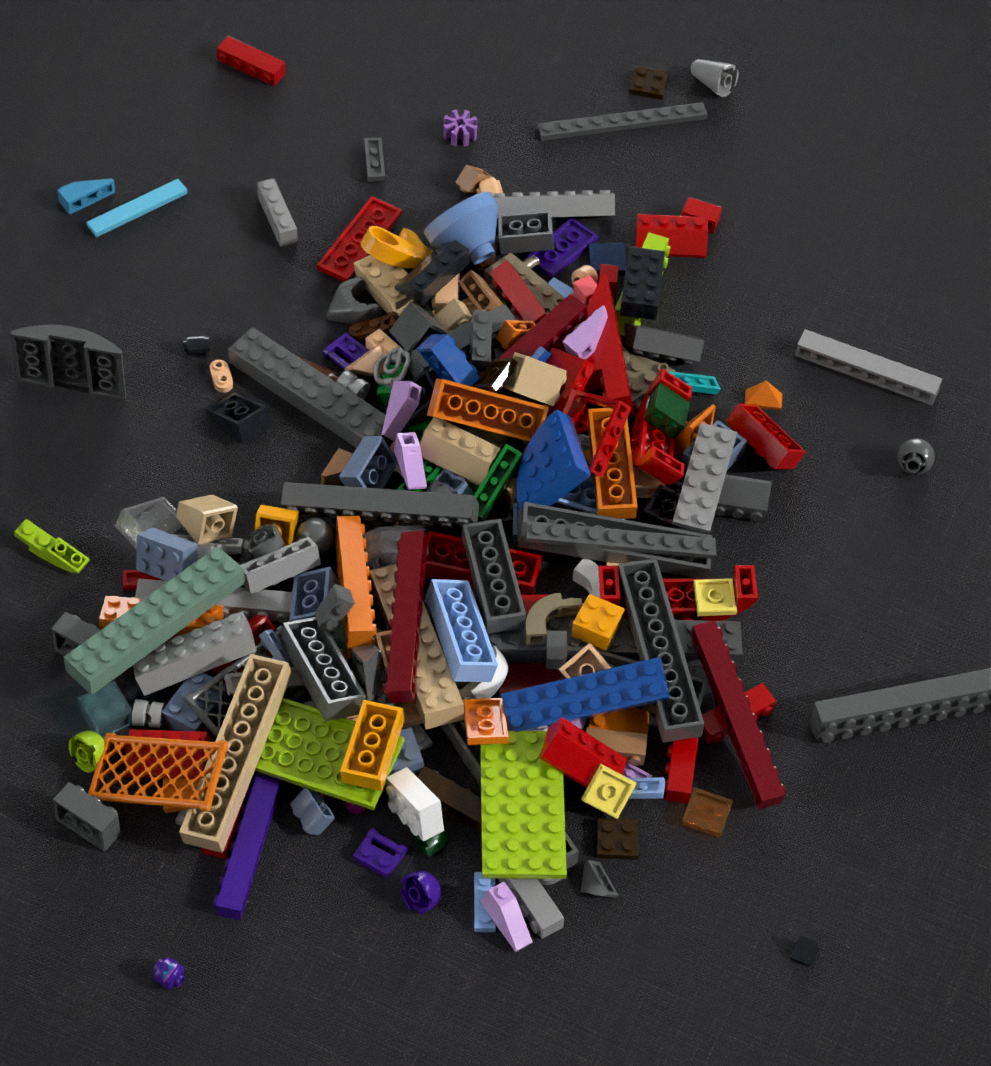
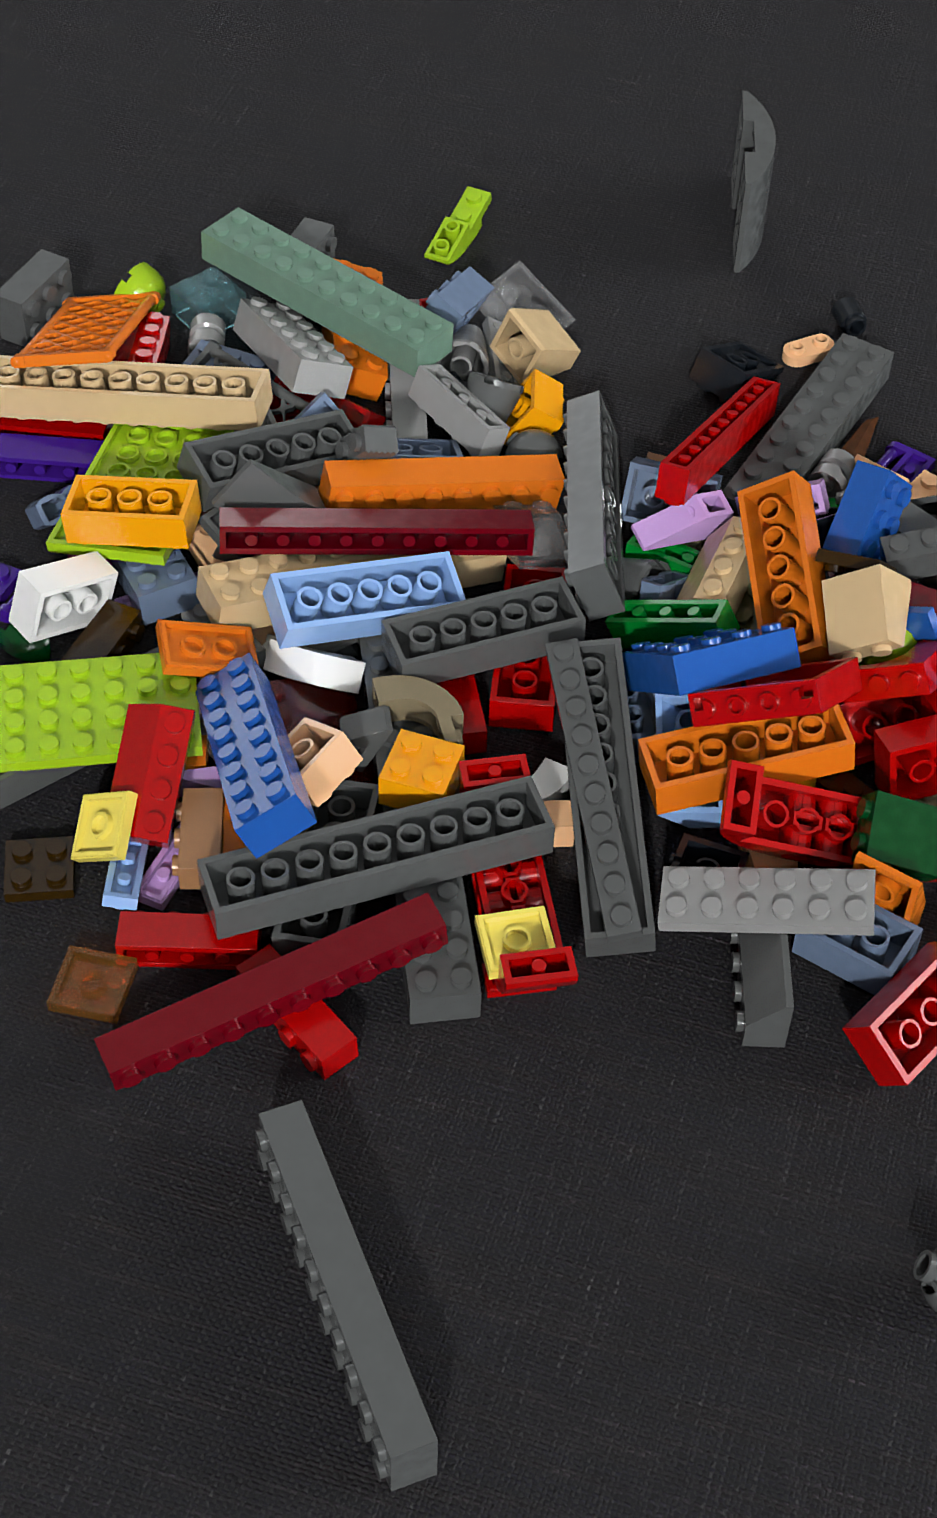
camera: 85 degrees right, 5 degrees down
(345, 426) = (716, 441): none -> red brick

